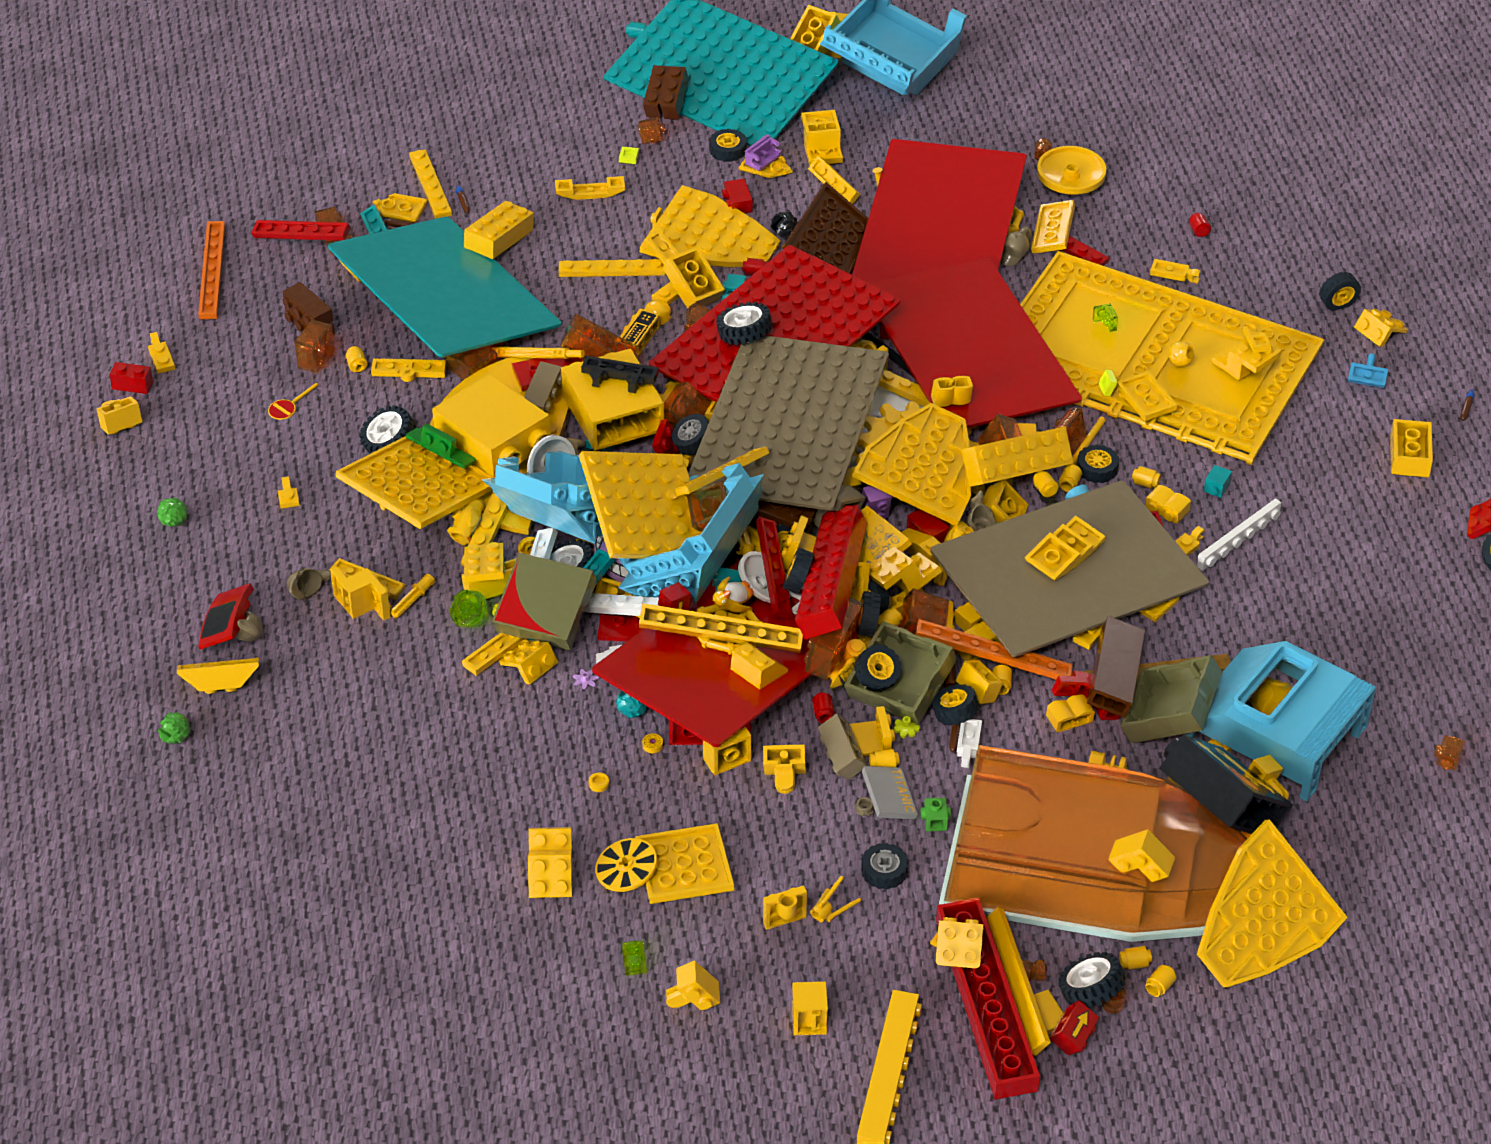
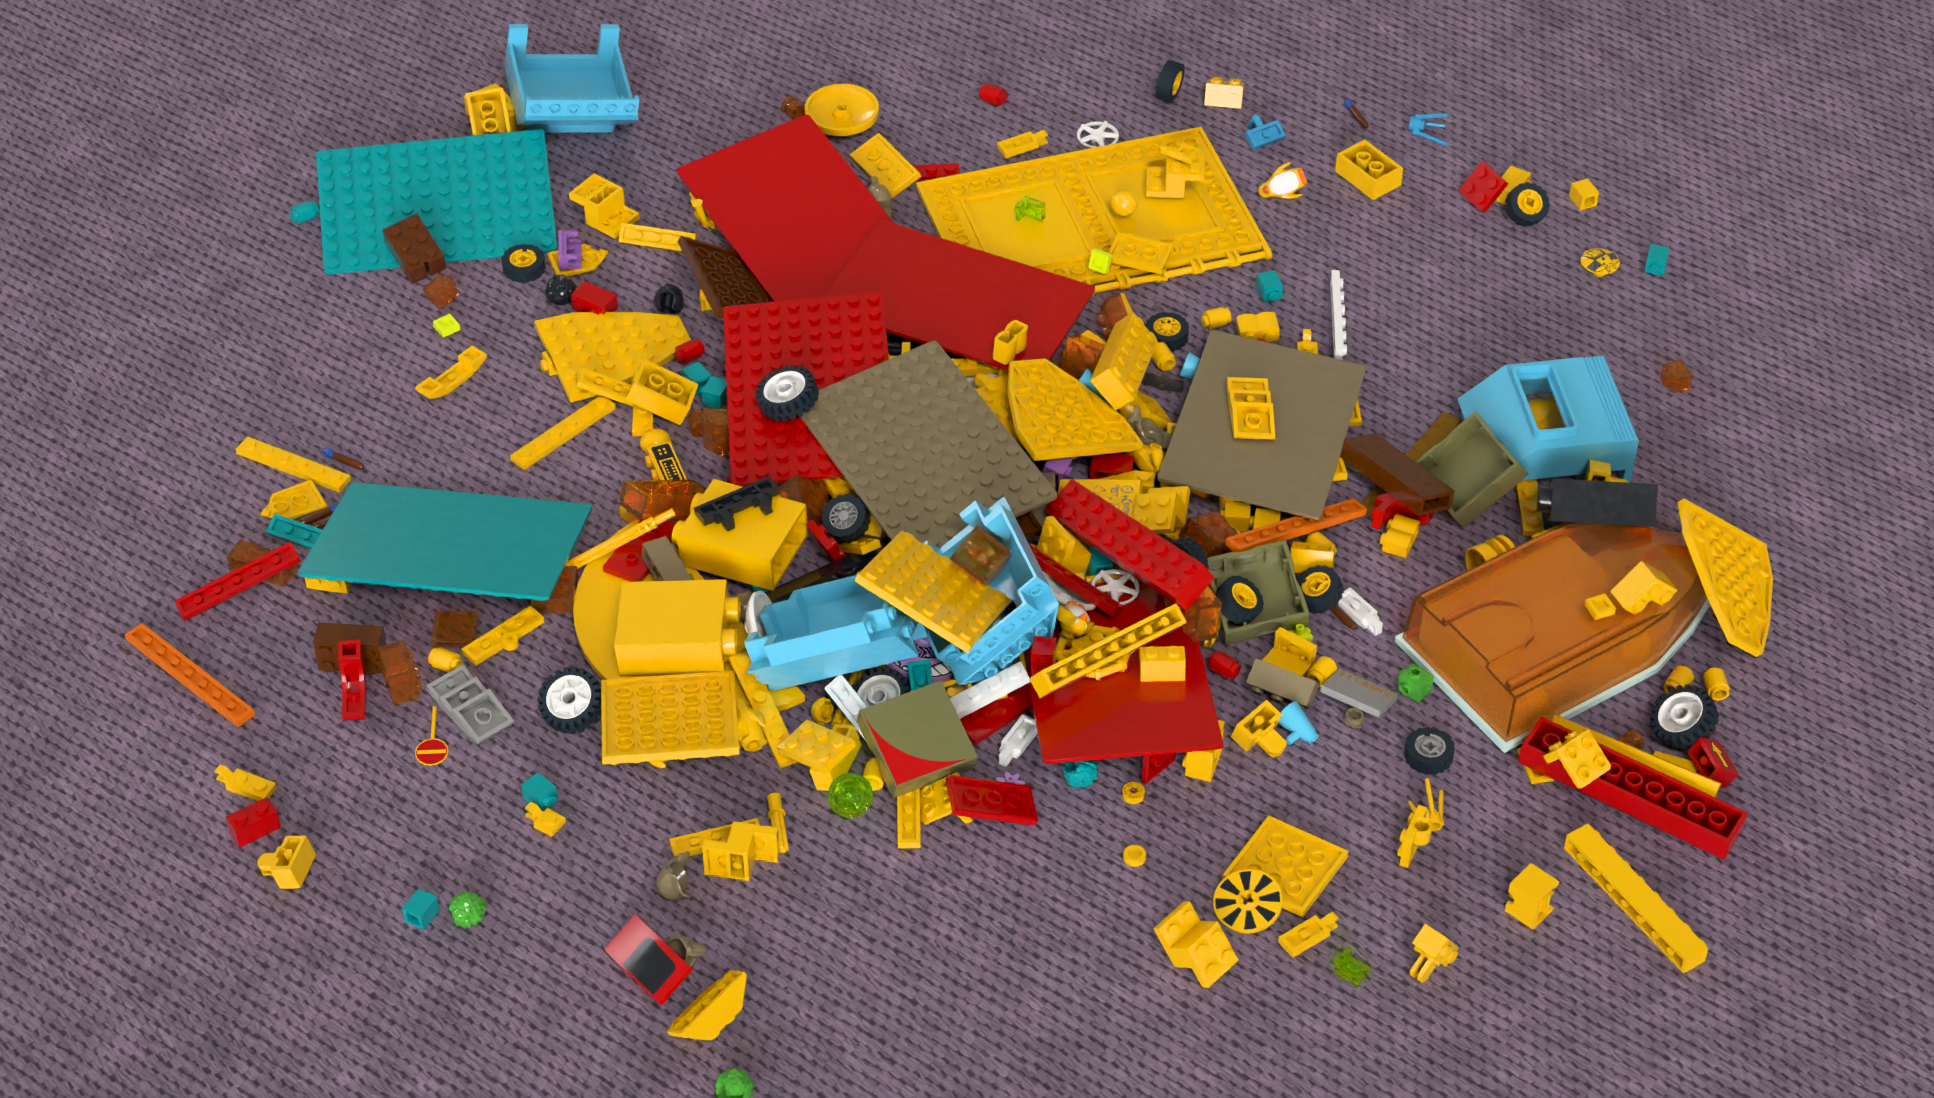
camera: 45 degrees left, 0 degrees up
(151, 493) = (421, 909): none -> teal brick
(288, 329) = (353, 679): none -> red arch
(303, 475) = (539, 791): none -> teal brick
(335, 395) = (469, 704): none -> light grey slope
(389, 344) = (454, 628): none -> clear orange tile
(440, 444) = (650, 672): green bracket -> none
(498, 229) = (425, 461): yellow brick -> none
(549, 676) = (991, 800): none -> red plate
(636, 915) = (1308, 934): none -> yellow plate
(717, 472) = (948, 522): yellow tile -> none
(723, 173) = (560, 289): none -> black piece
(798, 570) = (1100, 562): black wheel -> none
(819, 777) = (1298, 724): none -> medium azure piece
(1045, 483) = (1160, 371): yellow brick -> none
(1097, 846) = (1600, 606): none -> yellow plate
(1241, 299) = (1097, 135): none -> white wheel
(1330, 416) = (1283, 183): none -> animal

